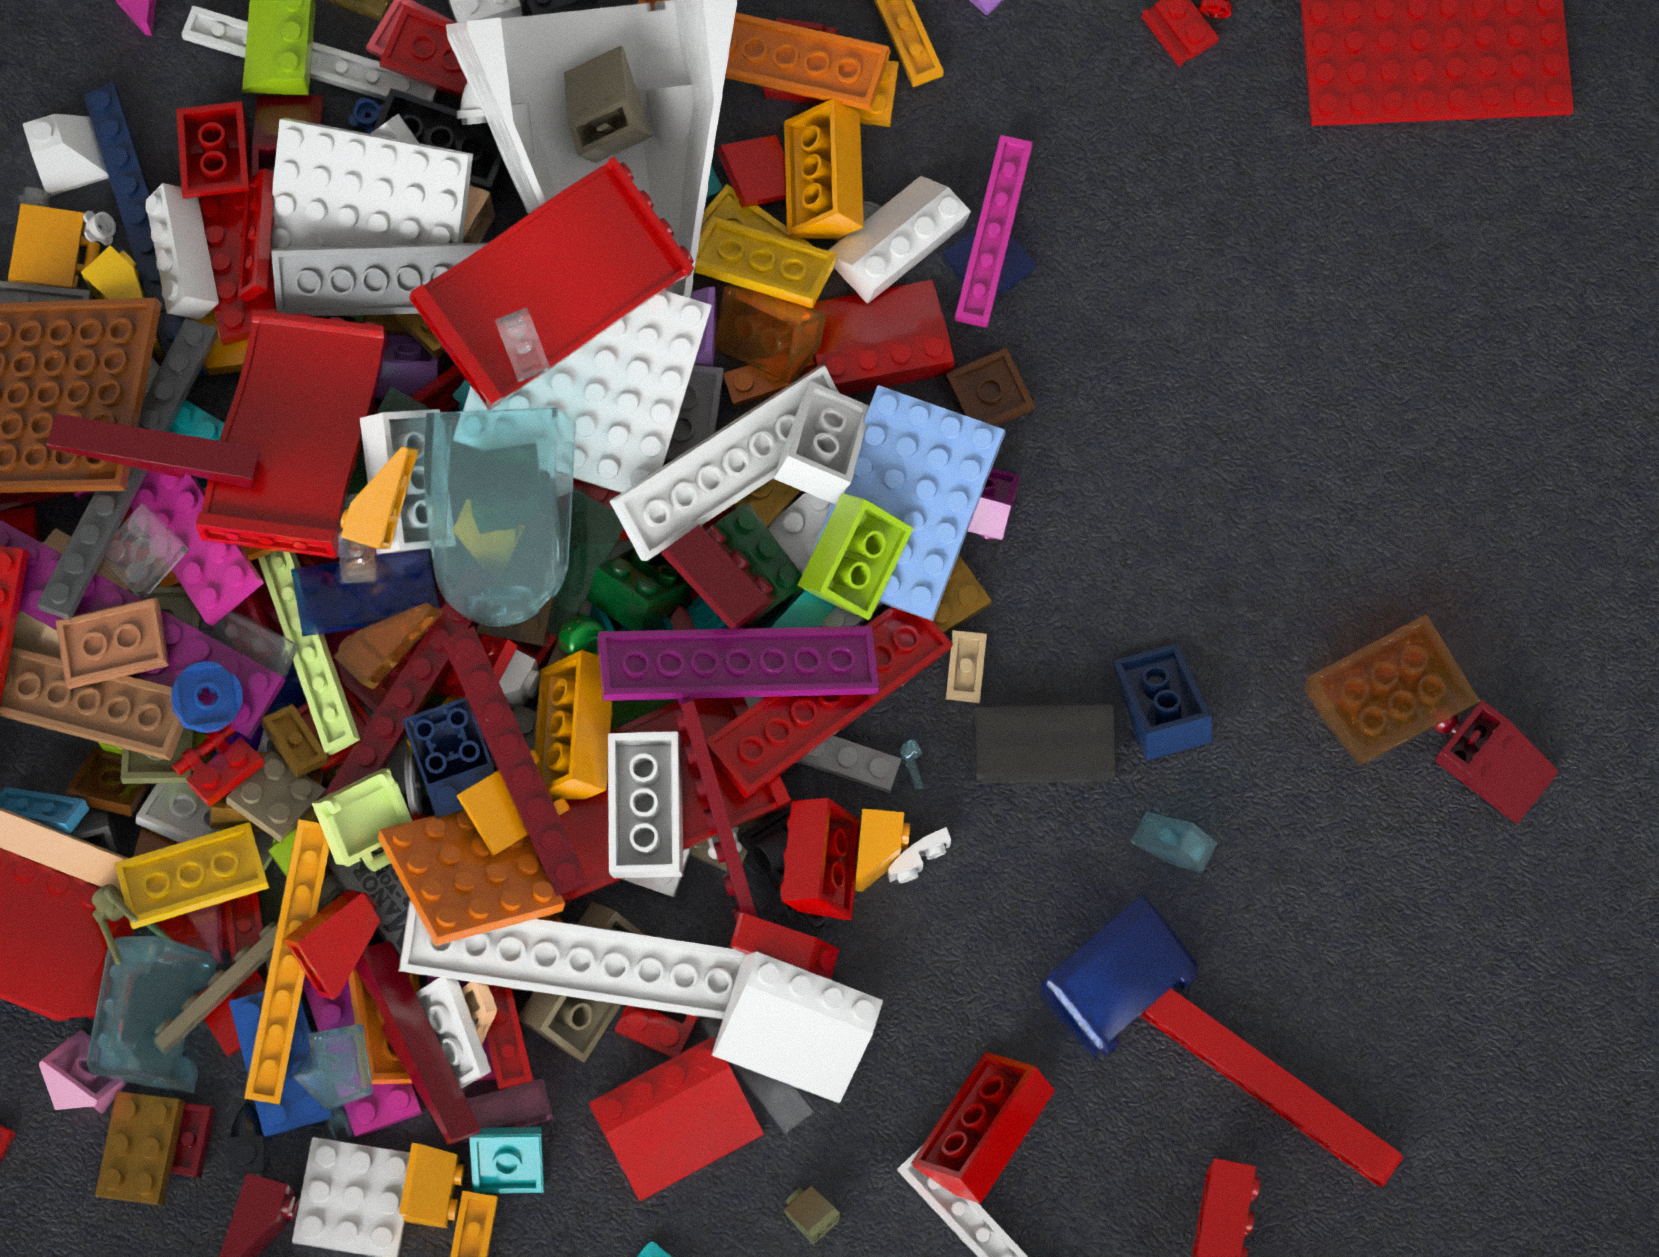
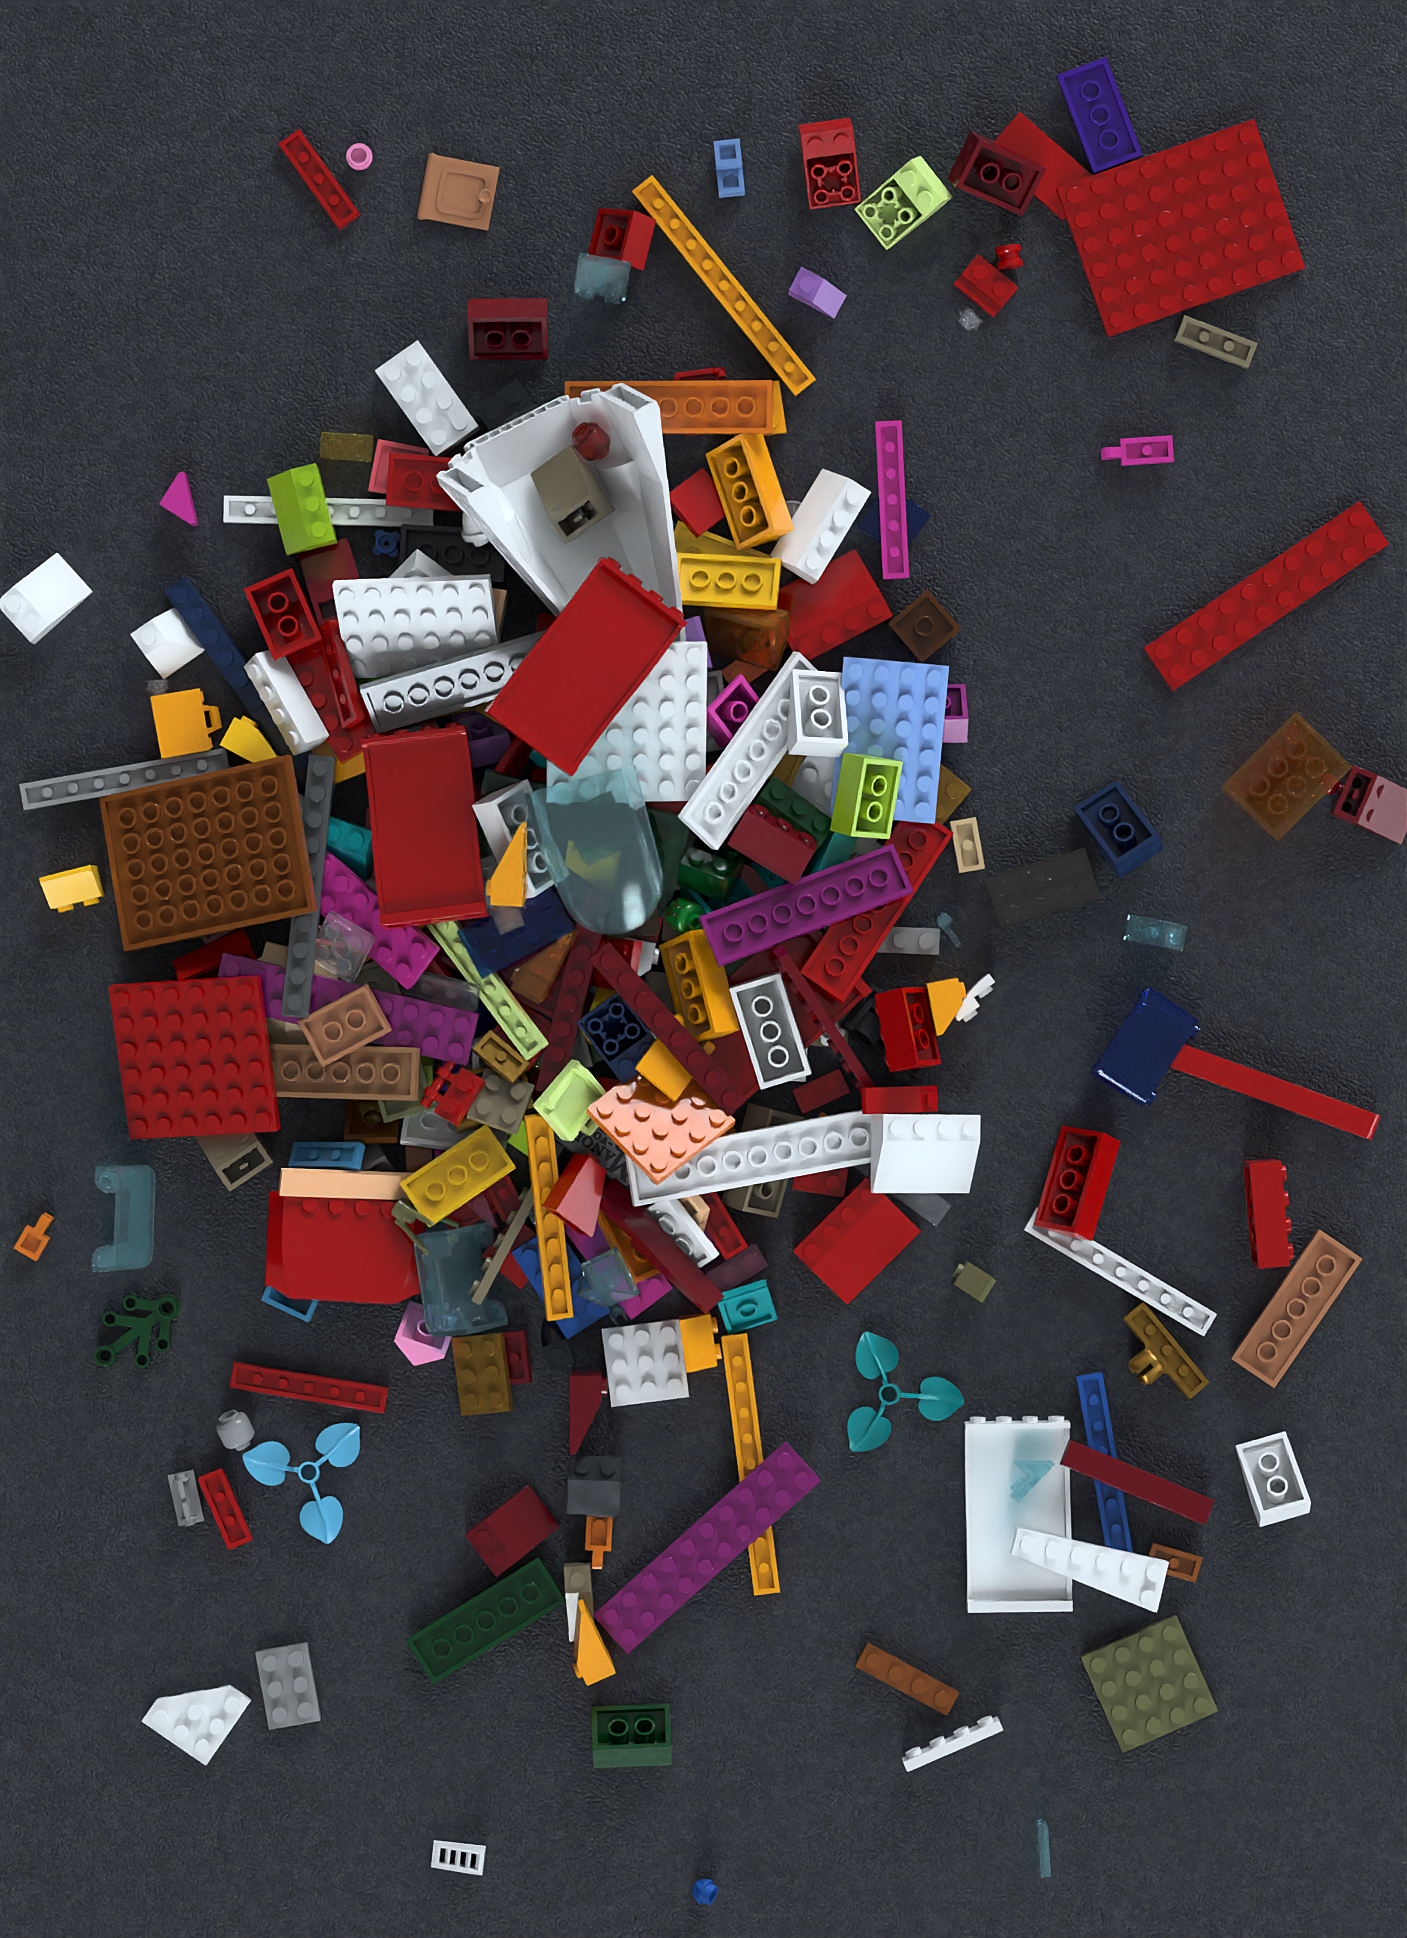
camera: 15 degrees left, 15 degrees up
(99, 227) = (214, 695): white plate -> none
(155, 450) = (330, 878): dark red slope -> none
(194, 713) = (415, 1045): blue plate -> none
(413, 785) = (596, 1063): light grey wheel -> none
(522, 344) = (581, 725): clear slope -> none
(648, 52) = (591, 441): none -> clear red head
(690, 918) = (821, 1091): none -> red plate
(716, 404) = (730, 710): none -> dark pink slope
(1149, 57) = (969, 319): none -> clear plate
(1315, 262) = (1141, 451): none -> dark pink plate
(1424, 476) = (1265, 596): none -> red plate
(1441, 164) = (1215, 342): none -> dark tan plate

